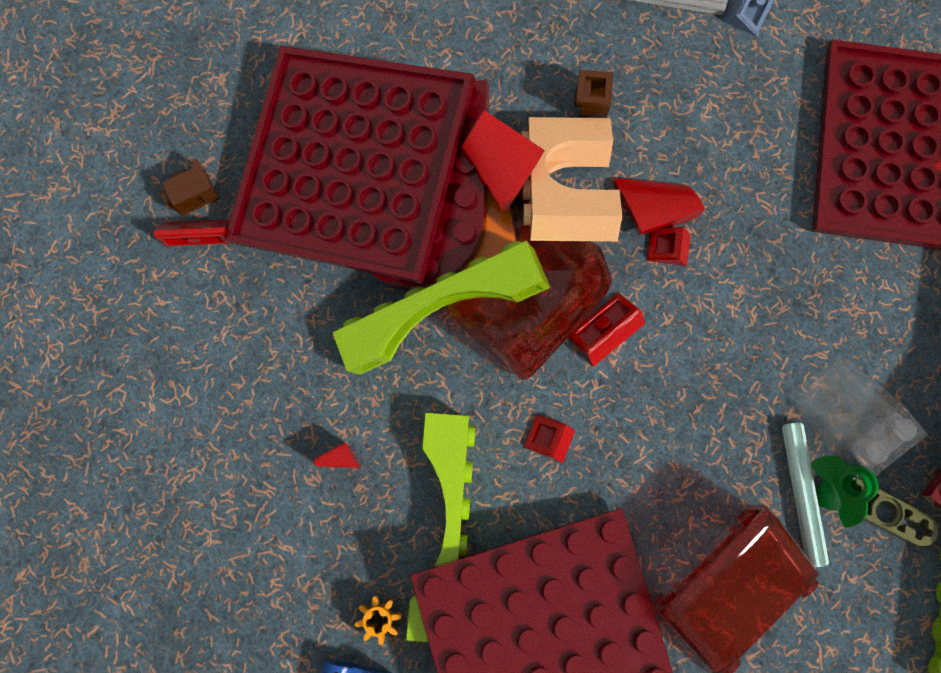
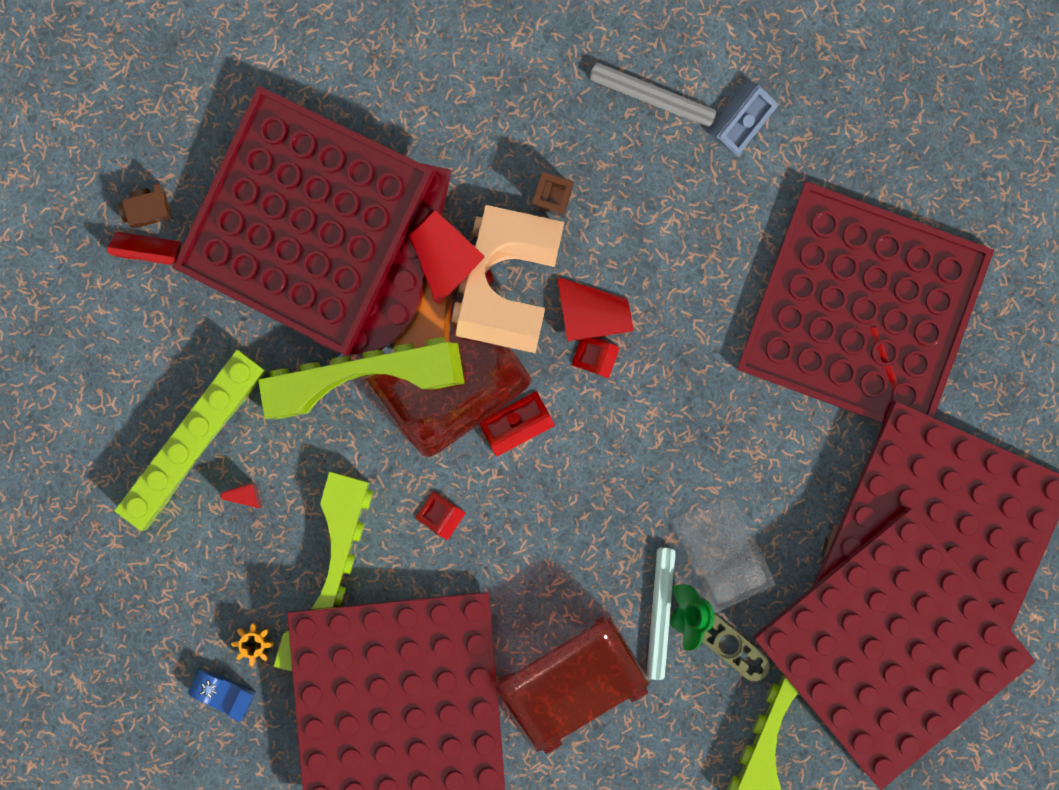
camera: 15 degrees right, 10 degrees up
(257, 437) = (190, 440): none -> lime arch

